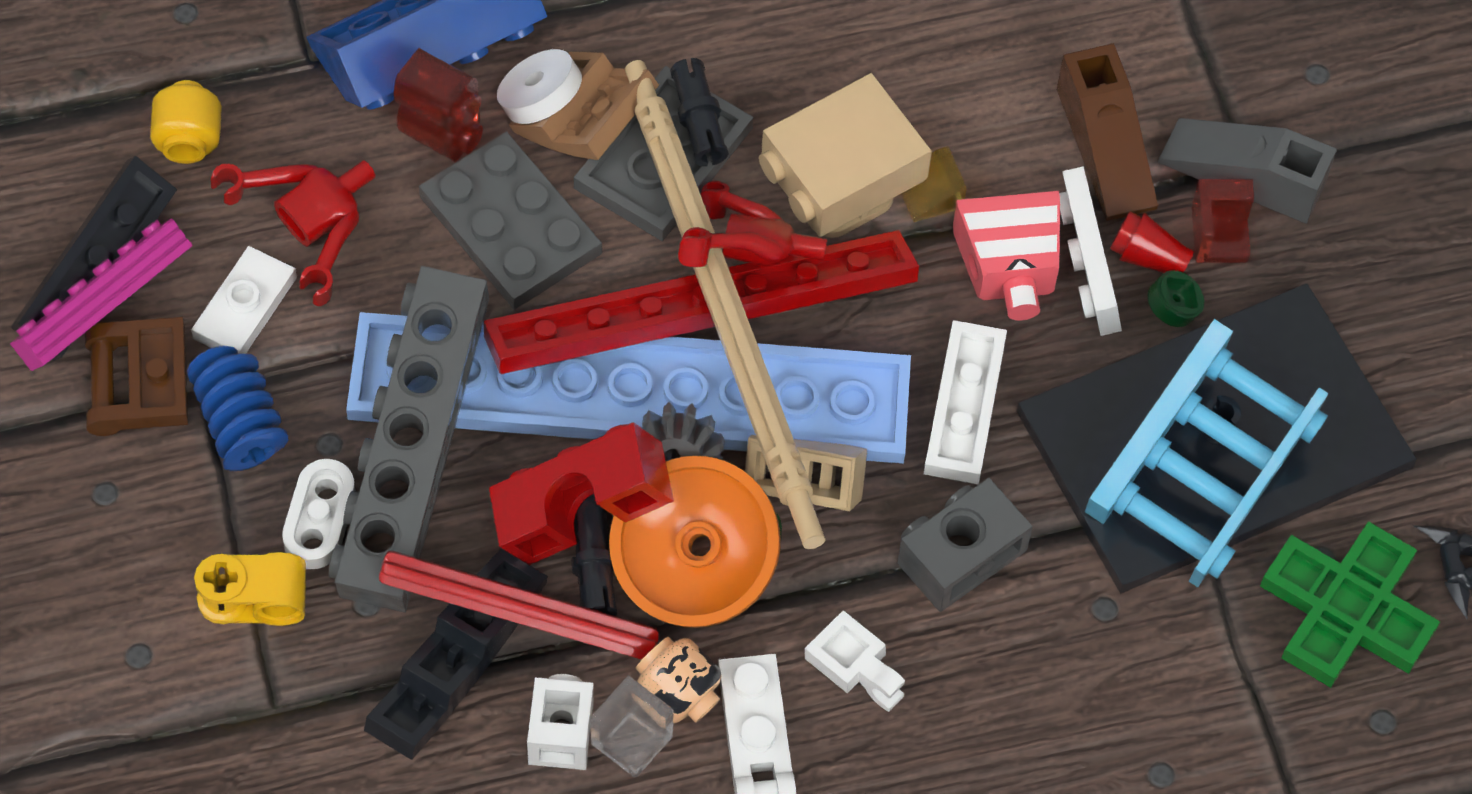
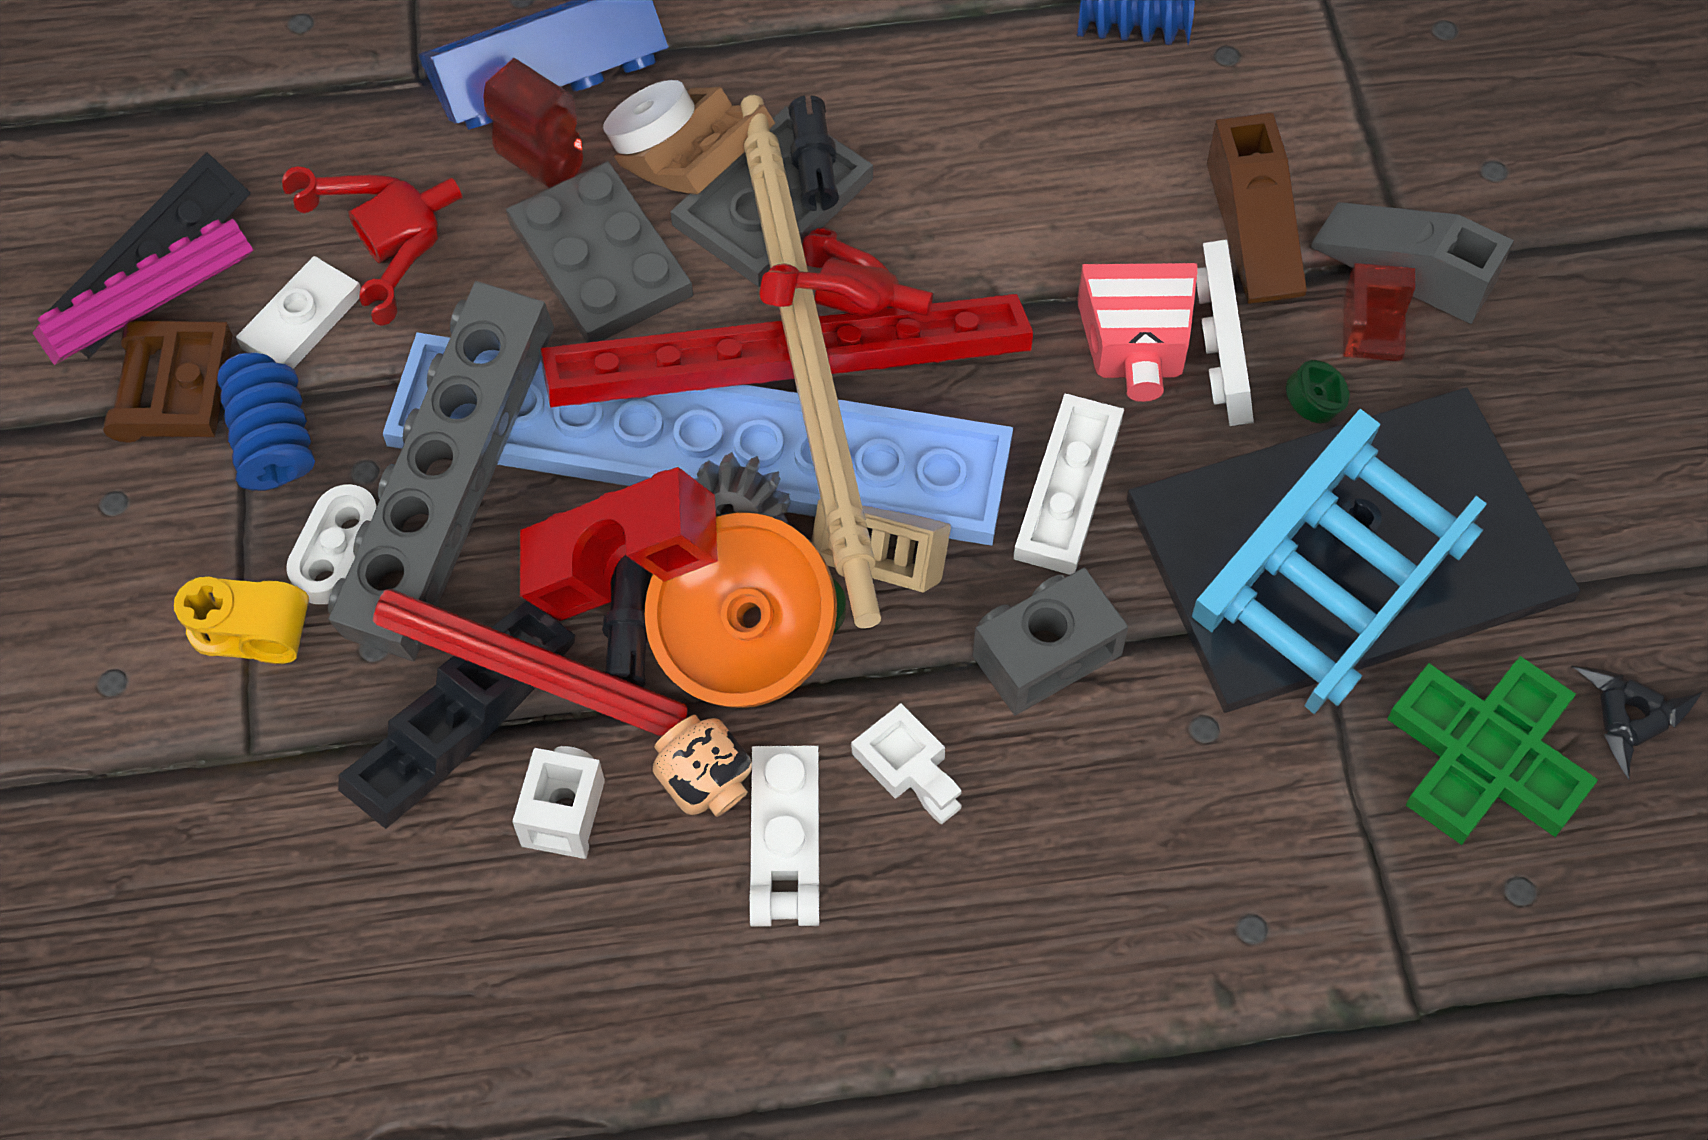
camera: 10 degrees right, 0 degrees up
(185, 122) = (272, 126): yellow head -> none
(632, 726) = (639, 814): clear panel -> none
(845, 157) = (965, 212): tan brick -> none
(939, 191) = (1058, 250): clear yellow slope -> none
(1149, 245) = (1293, 332): red cone -> none

